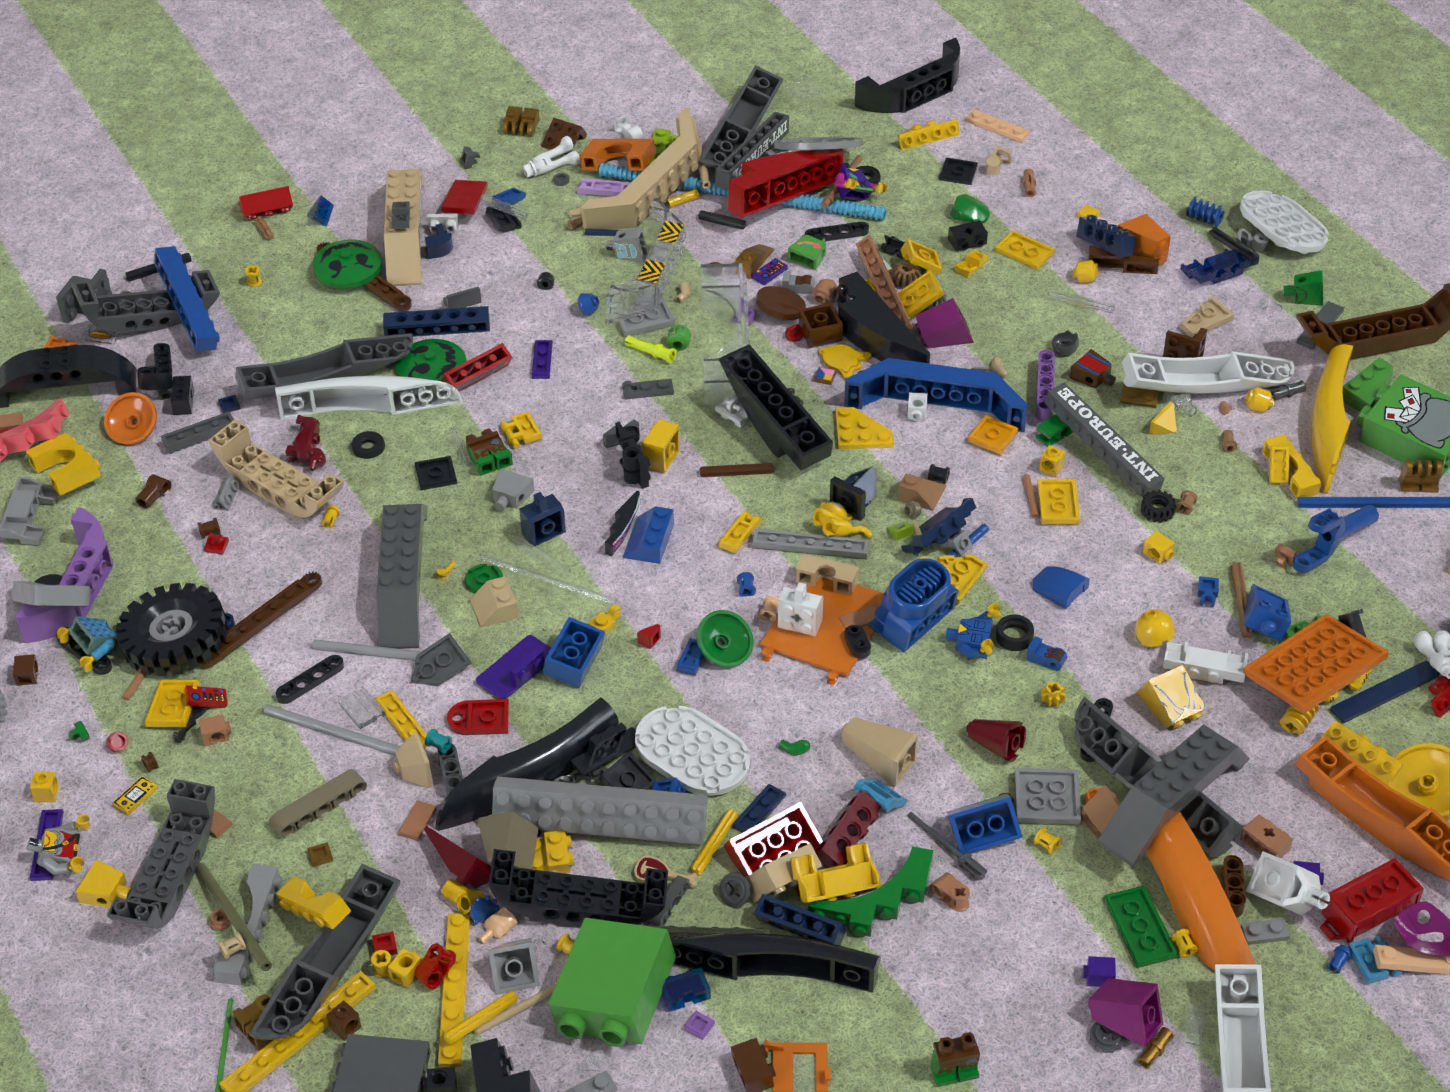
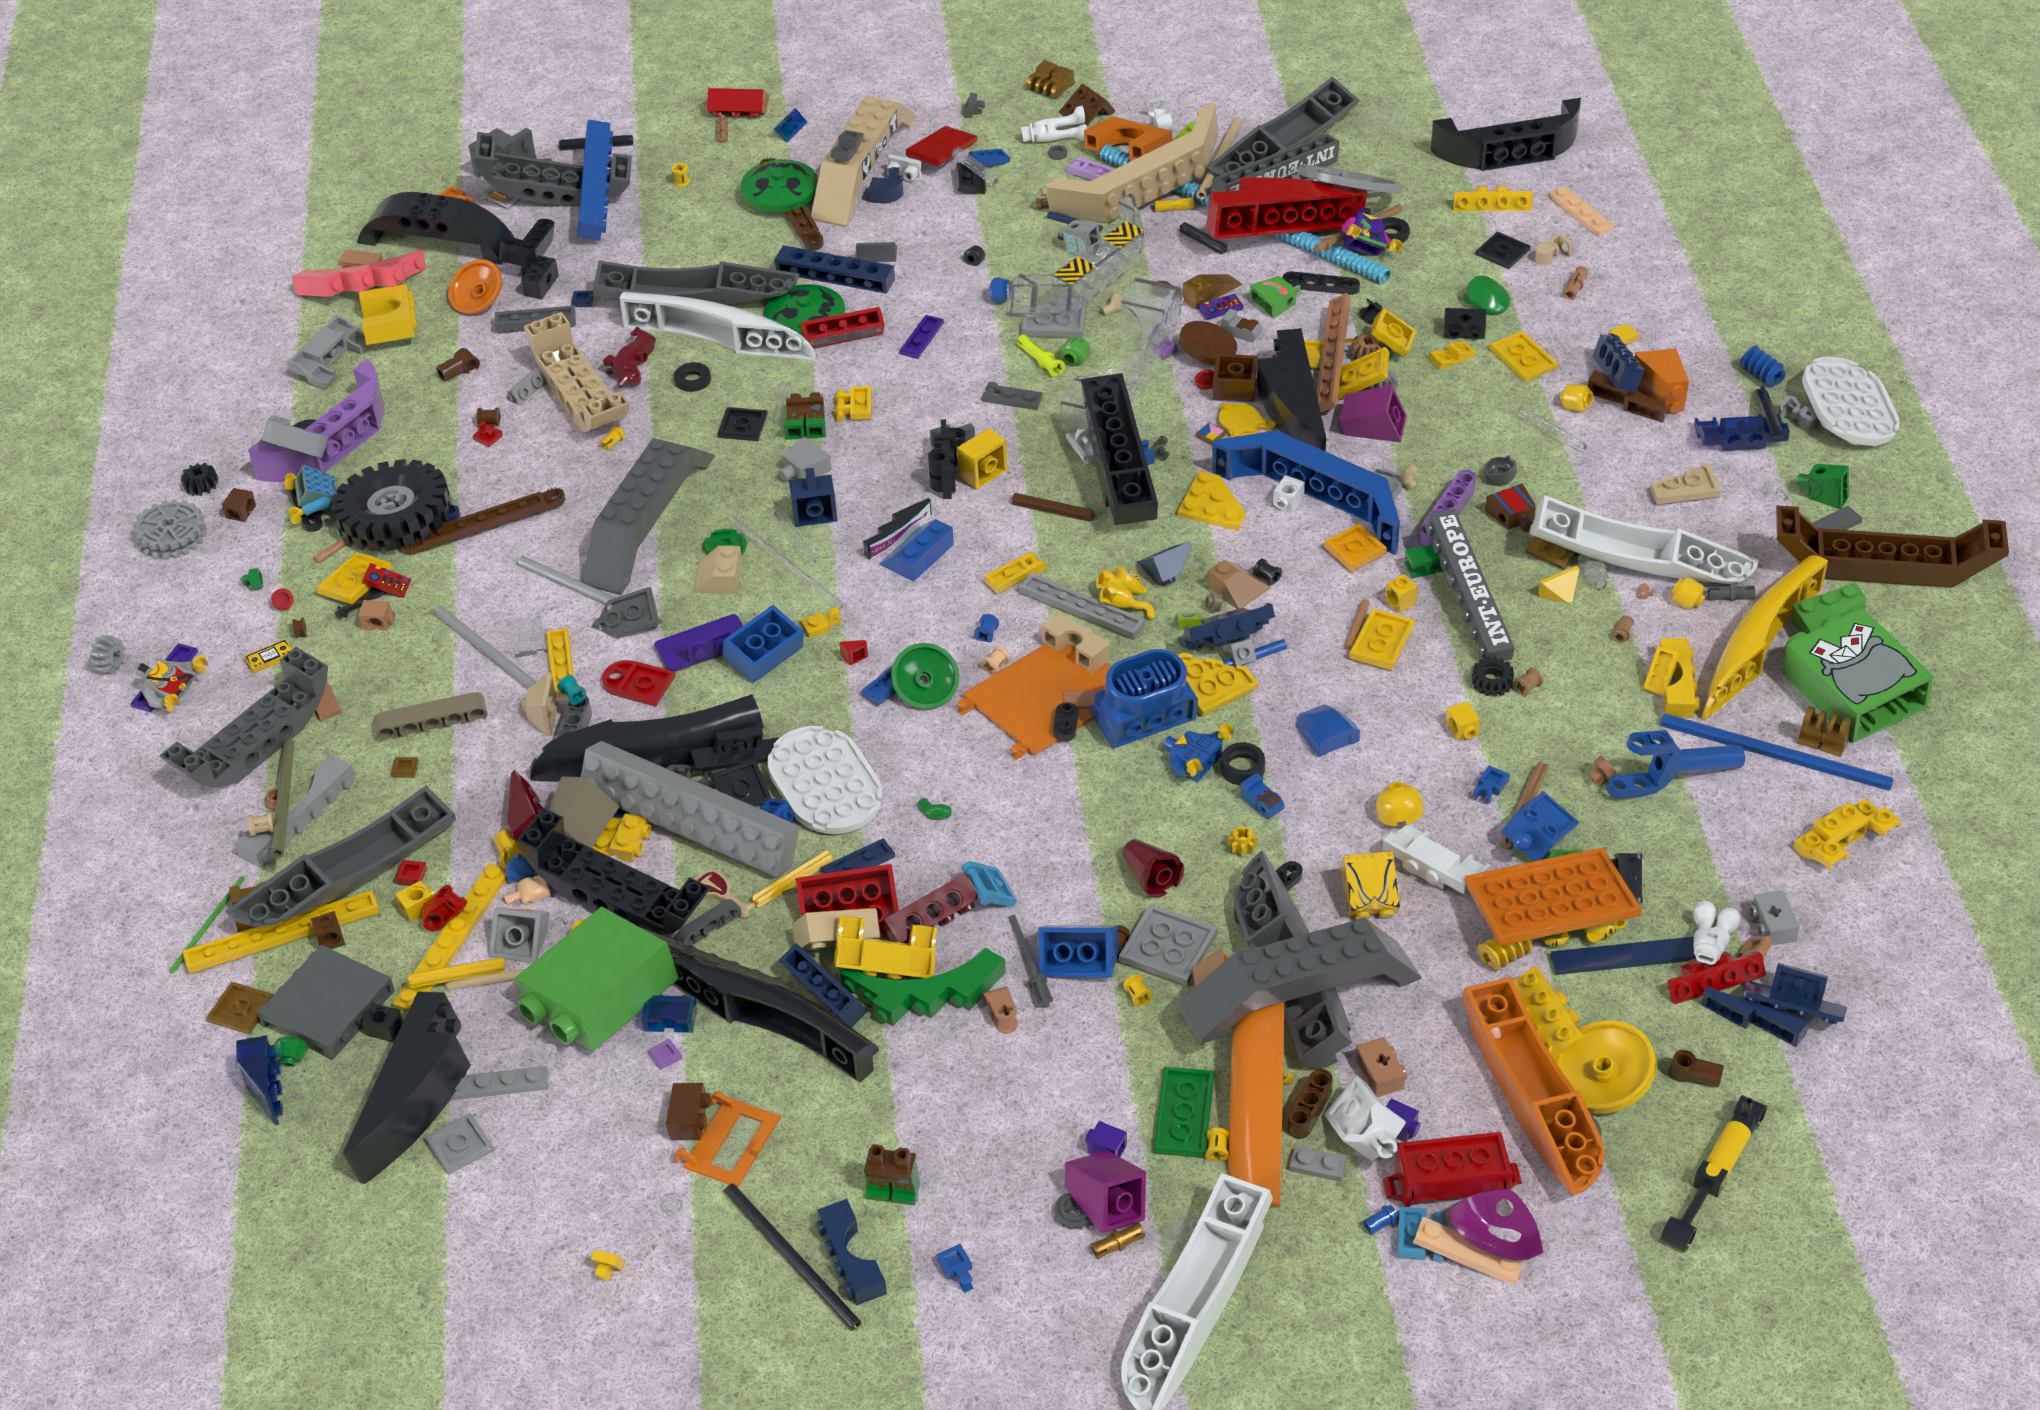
camera: 25 degrees right, 0 degrees up
(44, 786) = (190, 621): yellow brick -> none
(102, 885) = (187, 728): yellow torso -> none
(299, 898) = (359, 809): yellow arch -> none
(307, 677) = (496, 593): black beam -> none
(381, 960) = (399, 883): yellow bush -> none
(417, 820) = (518, 760): nougat tile -> none
(445, 572) = (692, 526): yellow hand -> none
(726, 889) = (773, 930): dark grey gear -> none
(800, 610) = (1018, 669): white hinge -> none
(825, 291) = (1262, 343): nougat head -> none
(849, 496) = (1147, 568): black plate -> none
(882, 747) = (1022, 839): tan slope -> none
(1184, 346) = (1631, 510): reddish brown bracket -> none

